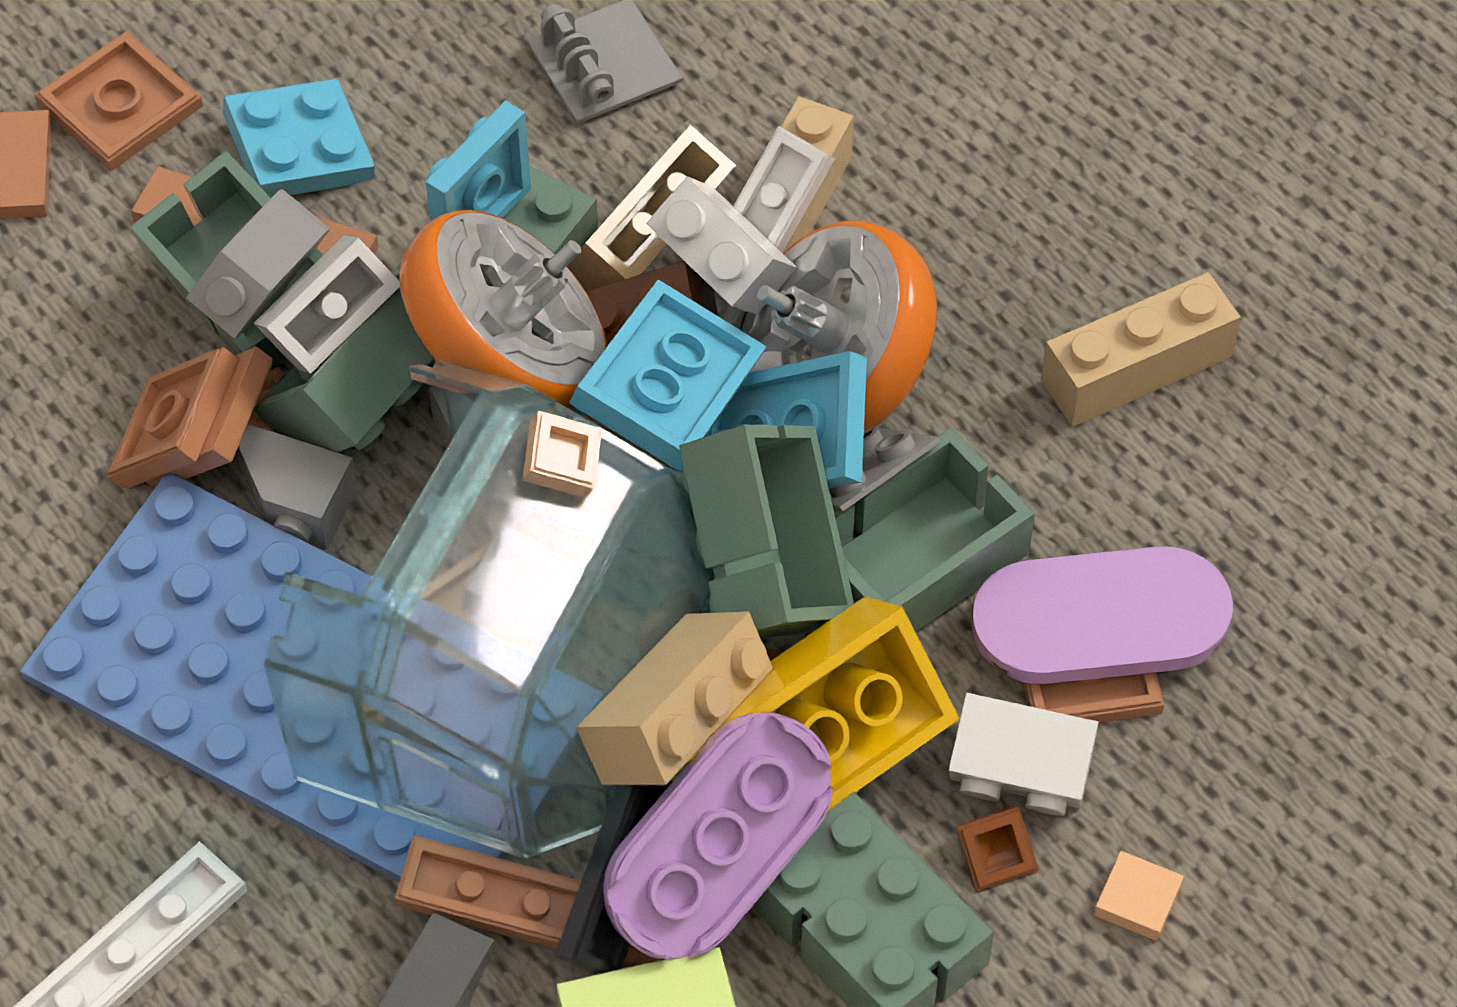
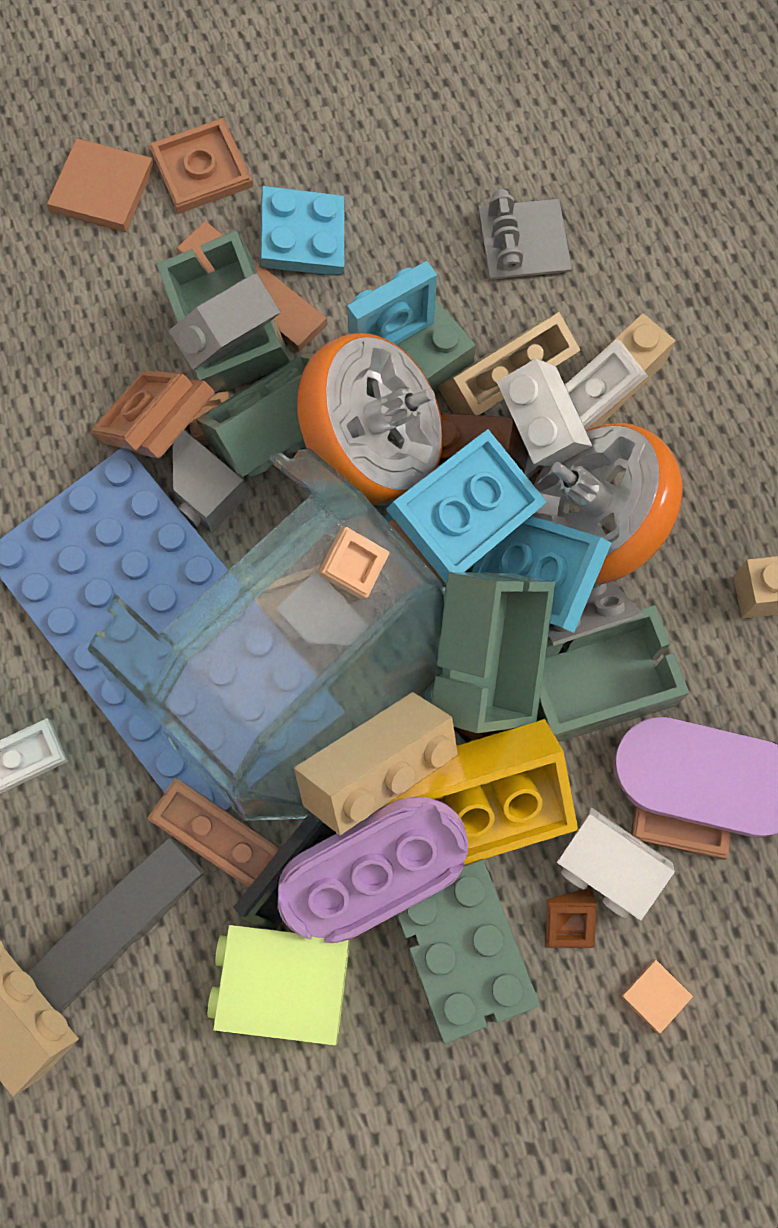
camera: 20 degrees right, 15 degrees up
(327, 303) = (257, 368): white brick -> none

